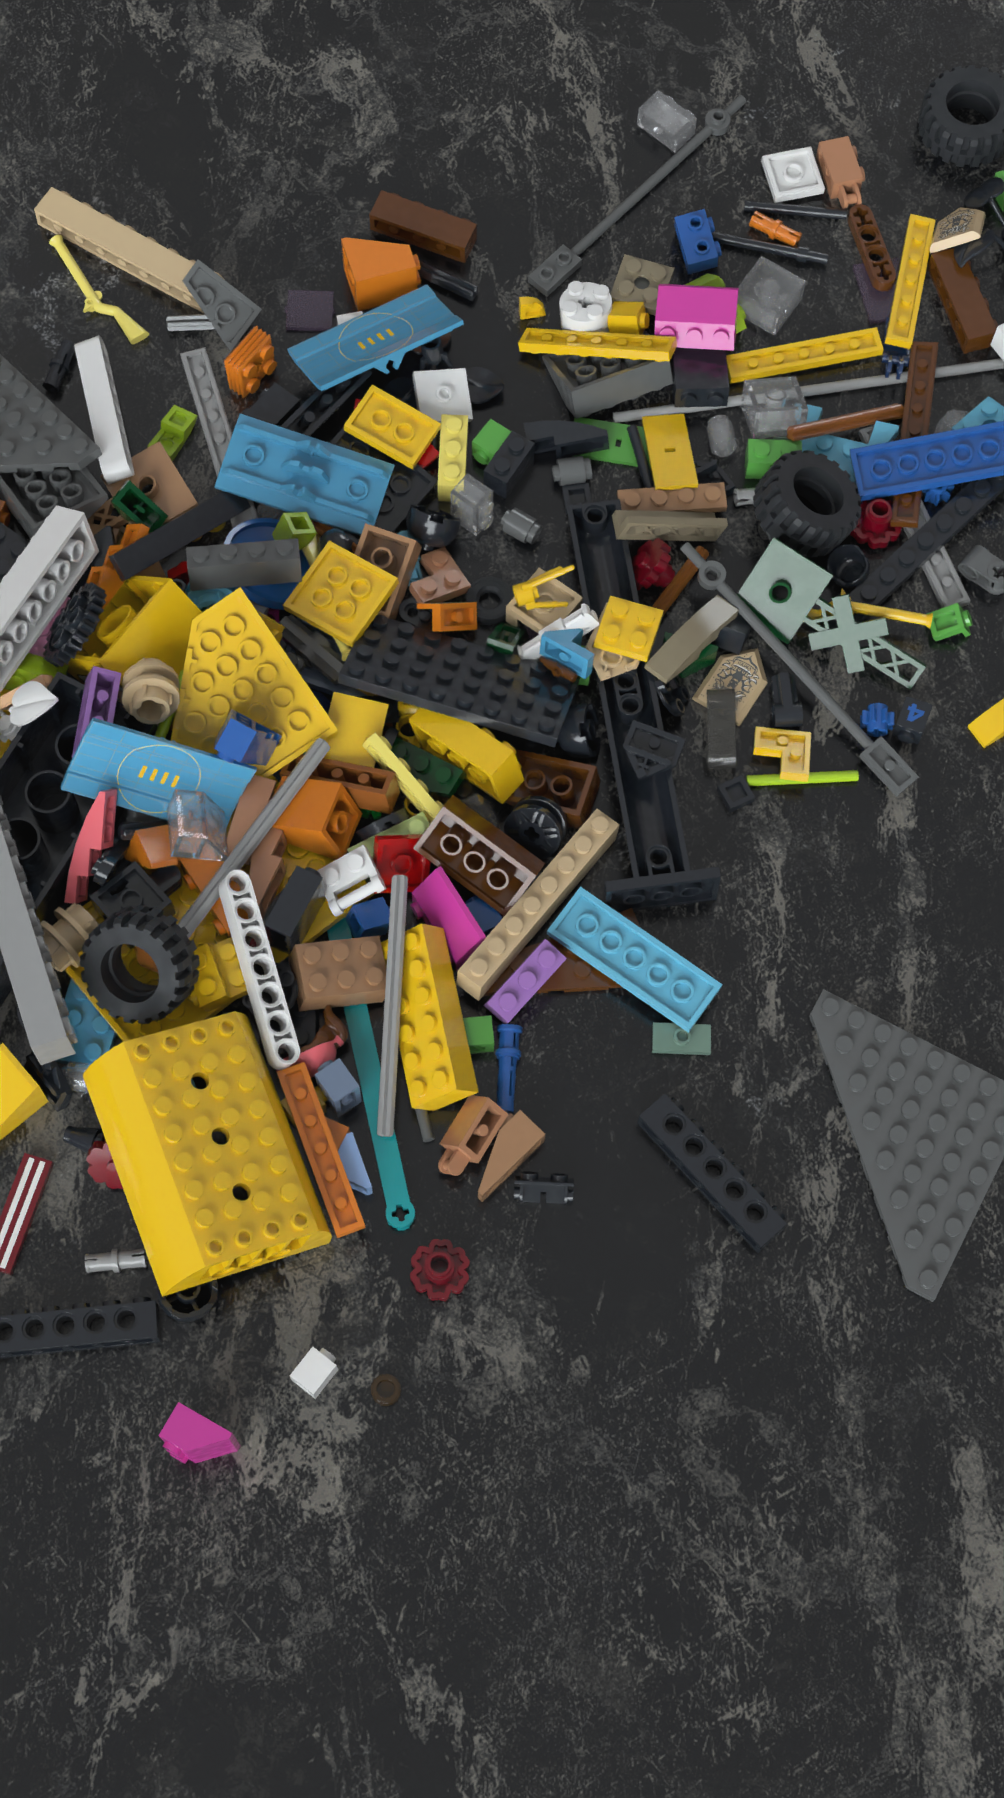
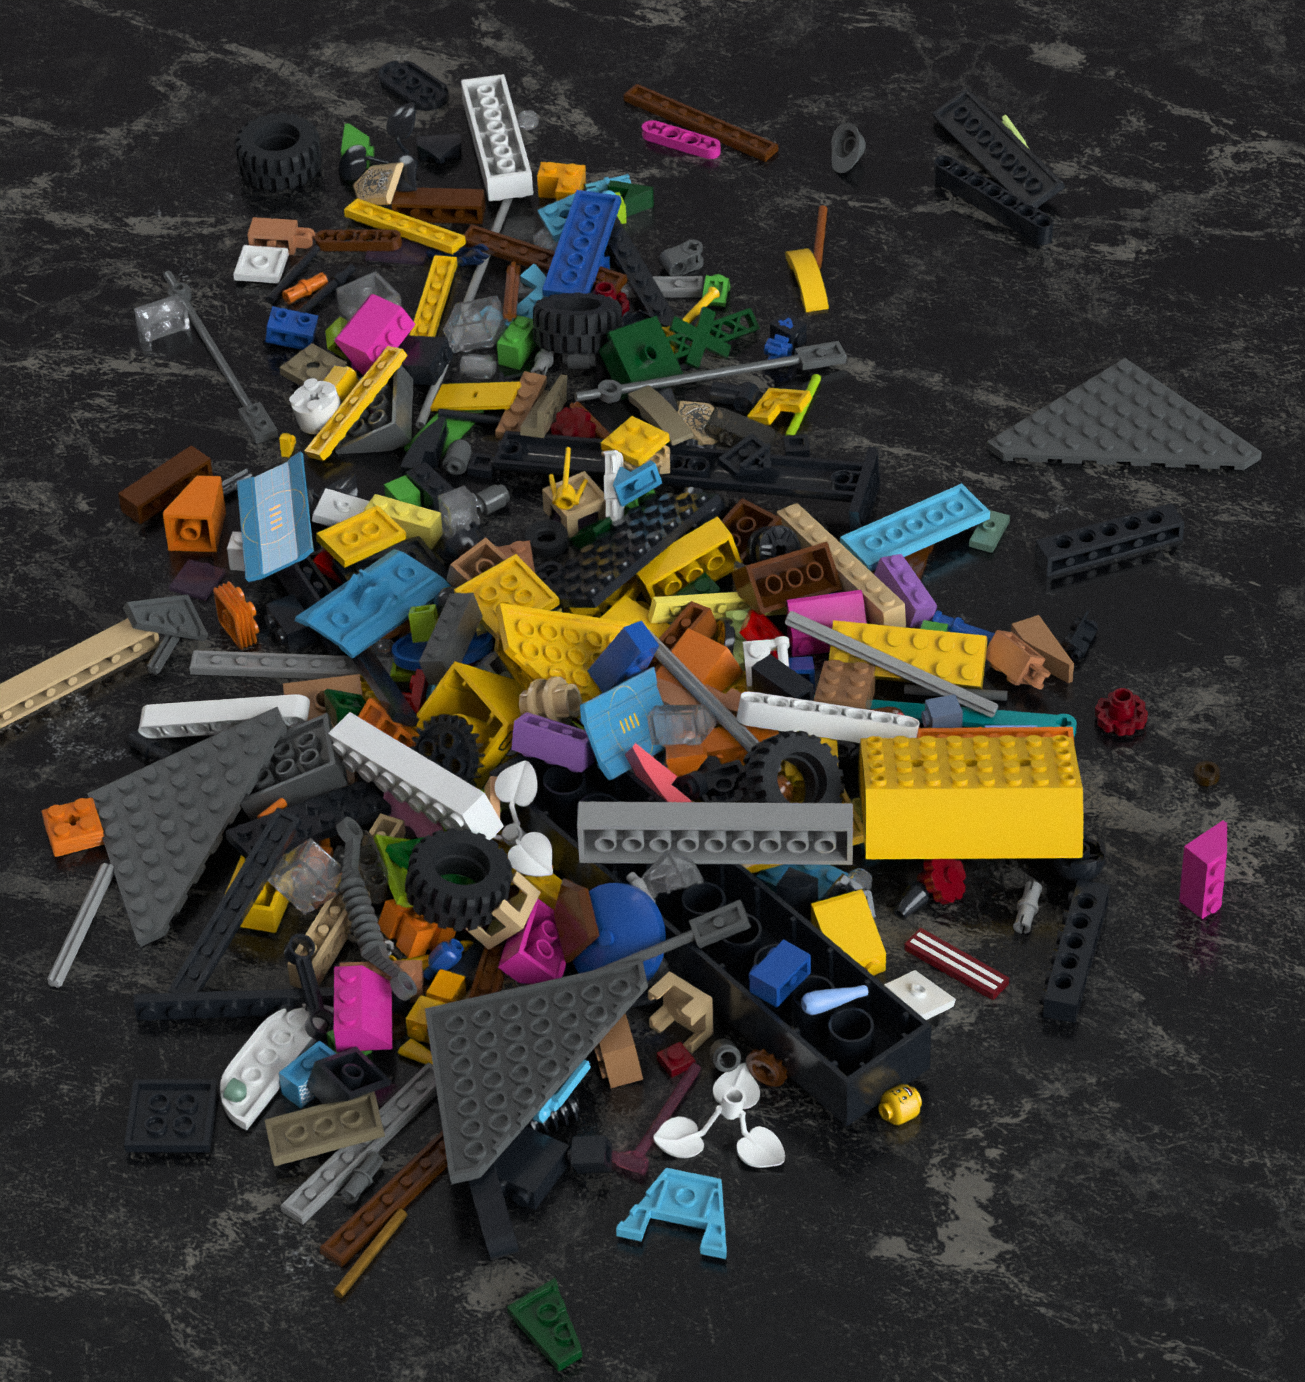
camera: 65 degrees left, 25 degrees down
(132, 329) = (140, 695): light yellow piece -> none
(175, 430) = (260, 686): lime slope -> none
(314, 1371) = (1176, 806): white brick -> none
(452, 615) = (556, 548): orange panel -> none
(559, 669) = (644, 496): reddish brown helmet -> none

